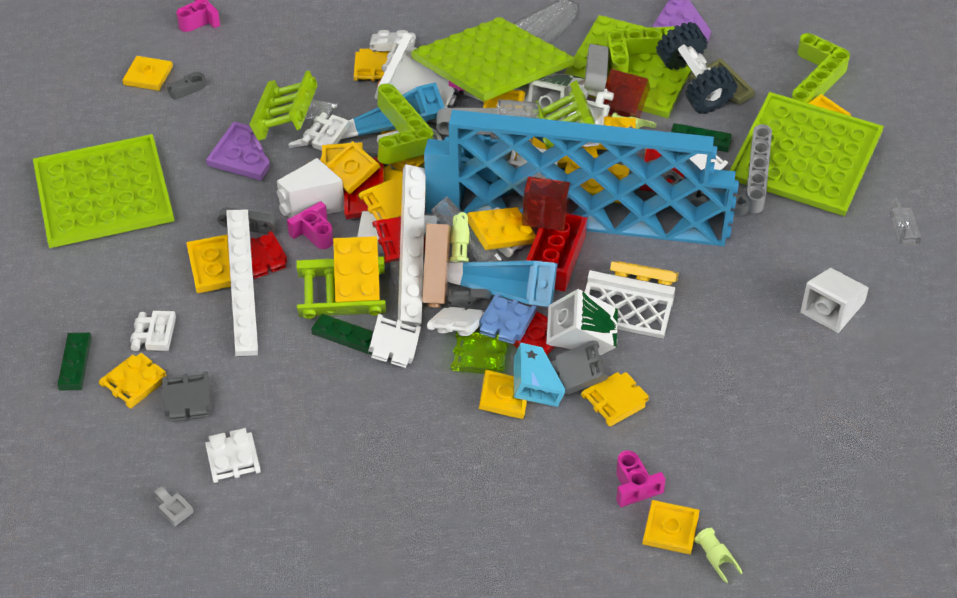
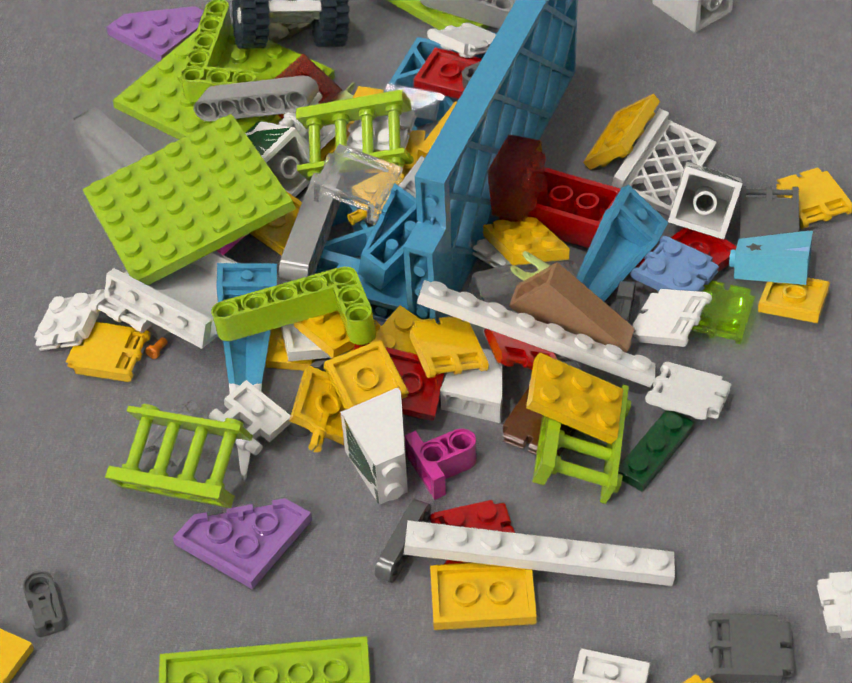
camera: 75 degrees left, 0 degrees up
(721, 139) = (385, 54): dark green plate -> none

